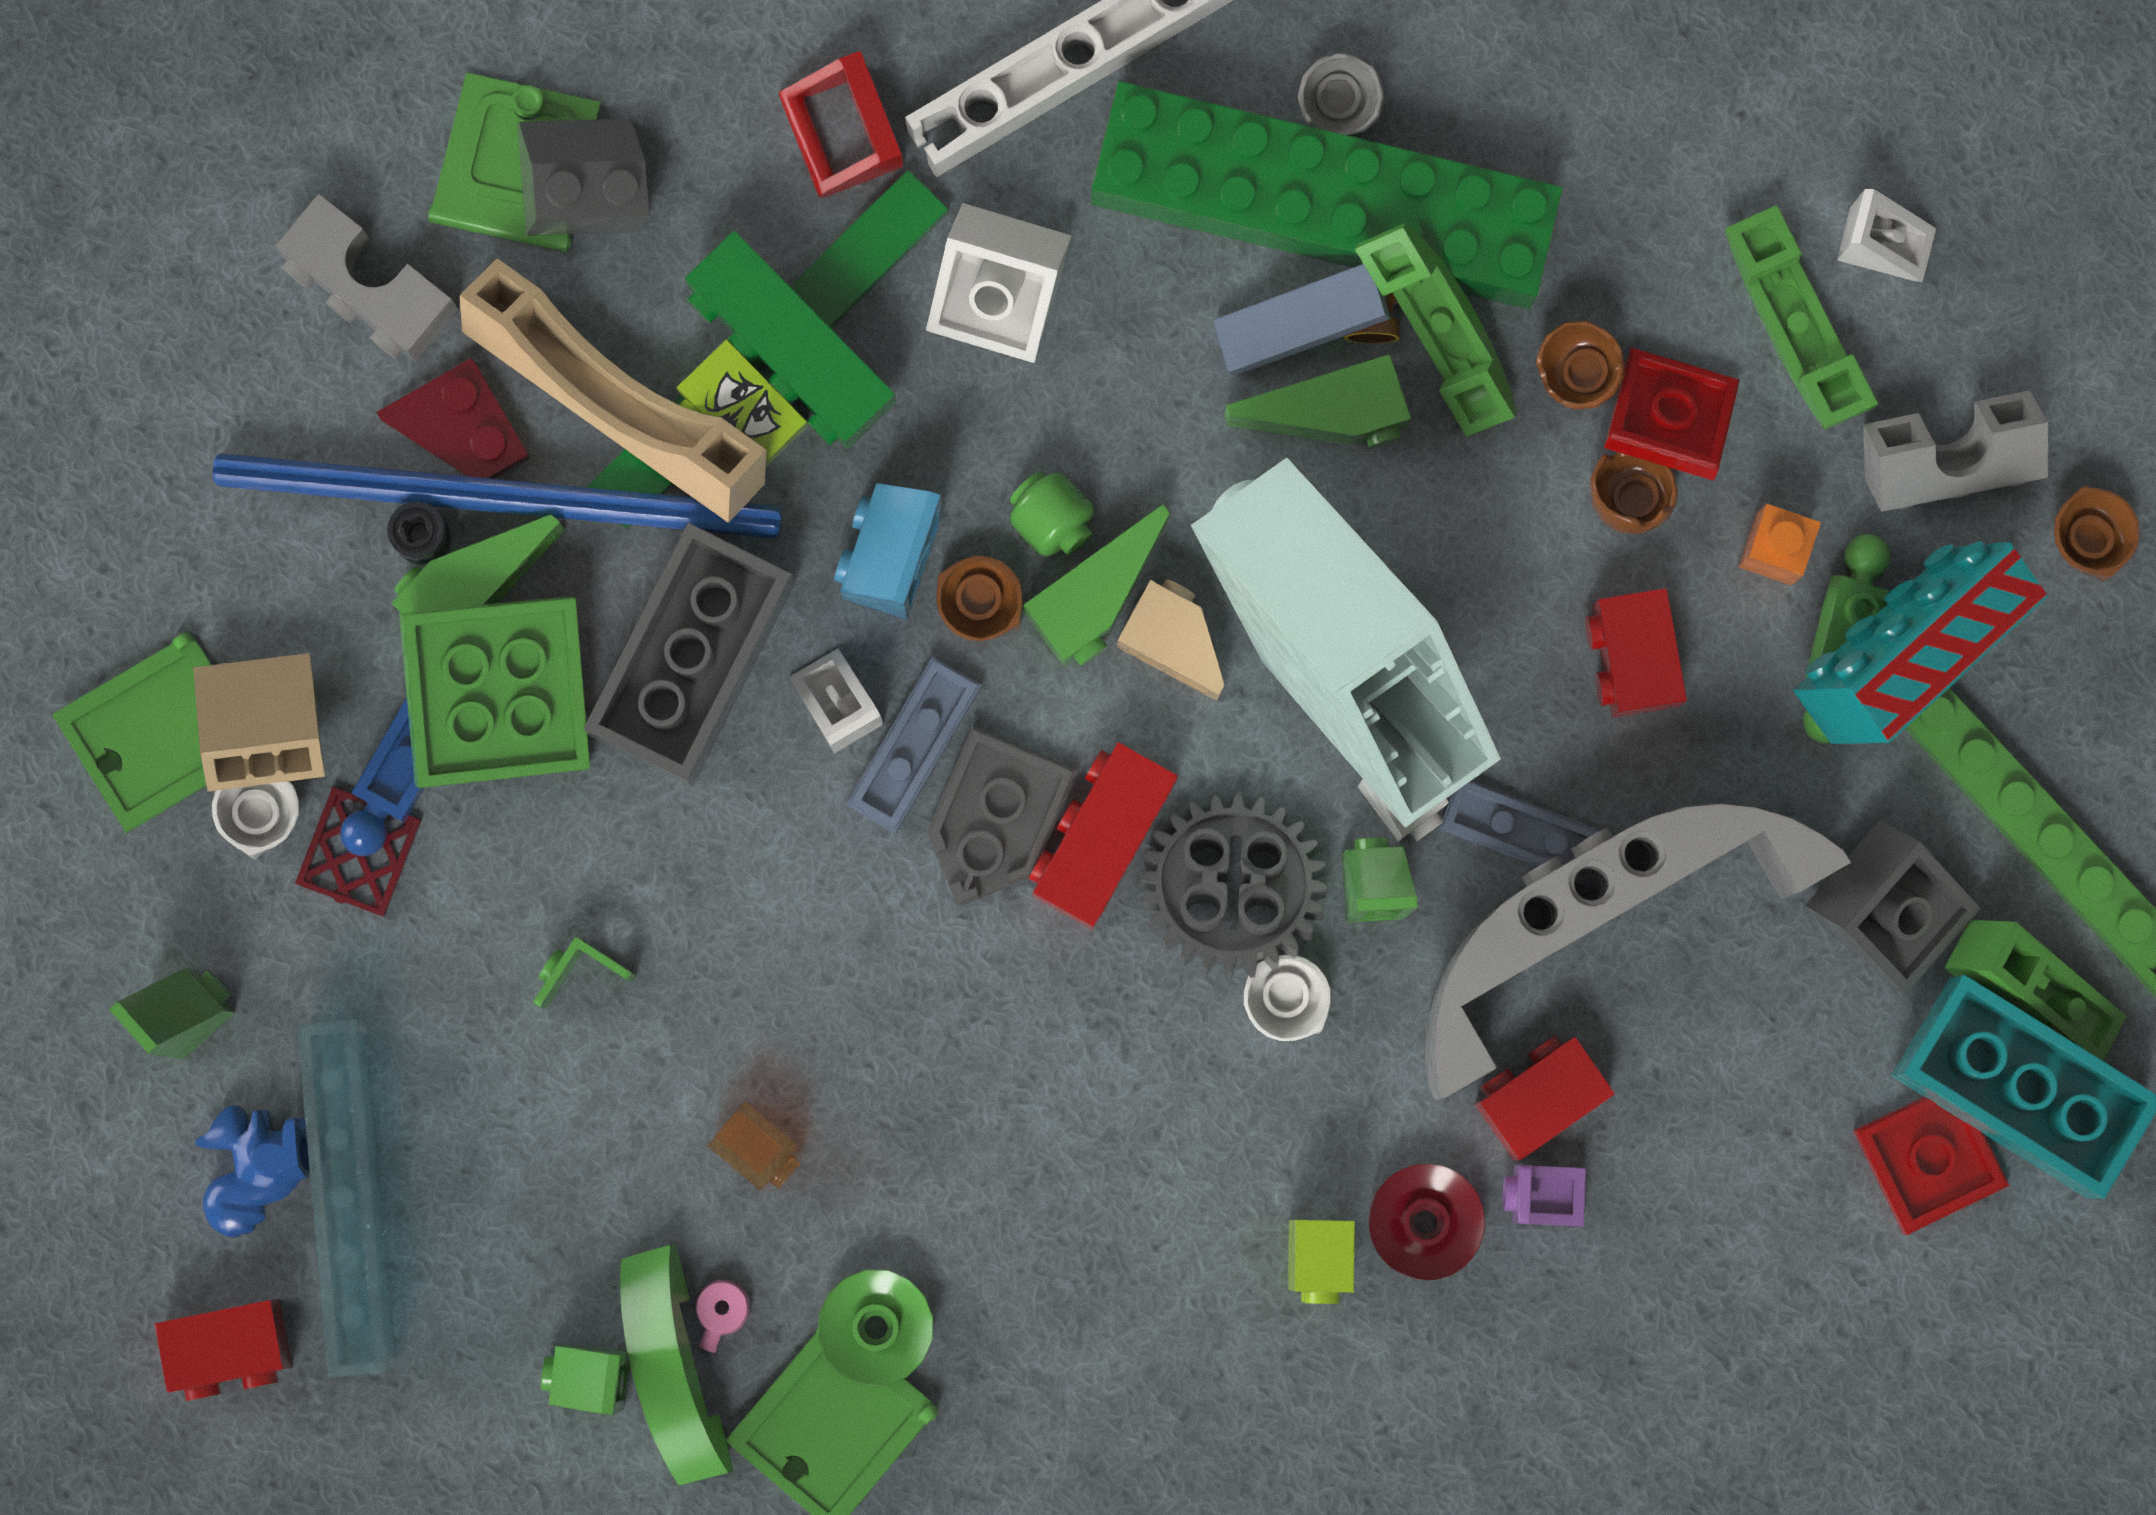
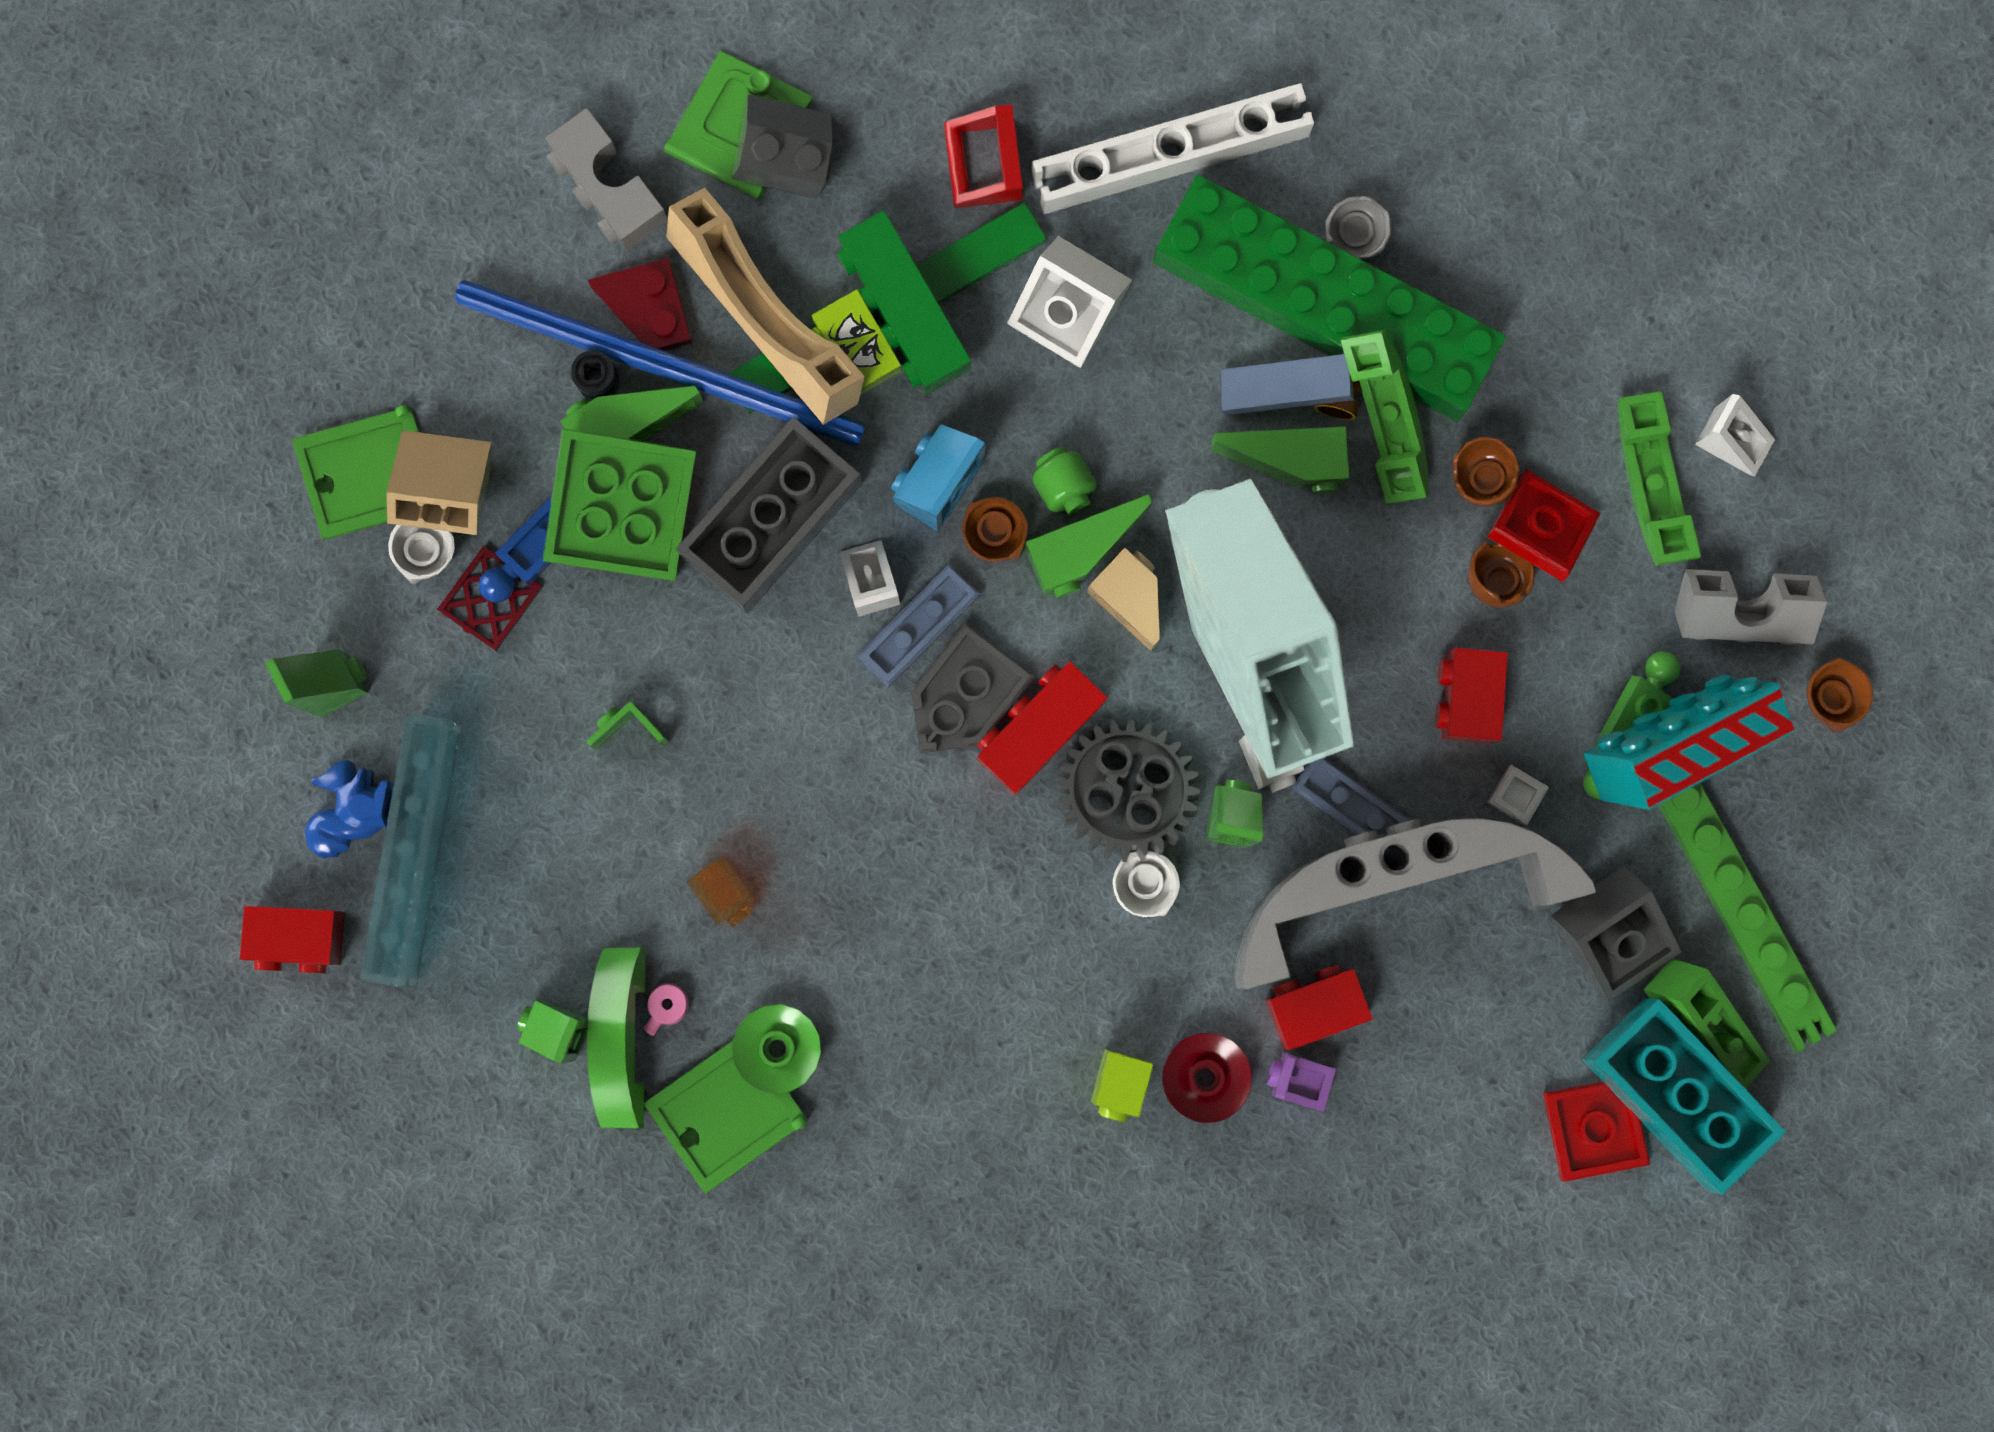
camera: 15 degrees right, 0 degrees up
(1726, 763) = (1517, 795): none -> white tile
(1779, 544) = (1600, 642): orange brick -> none

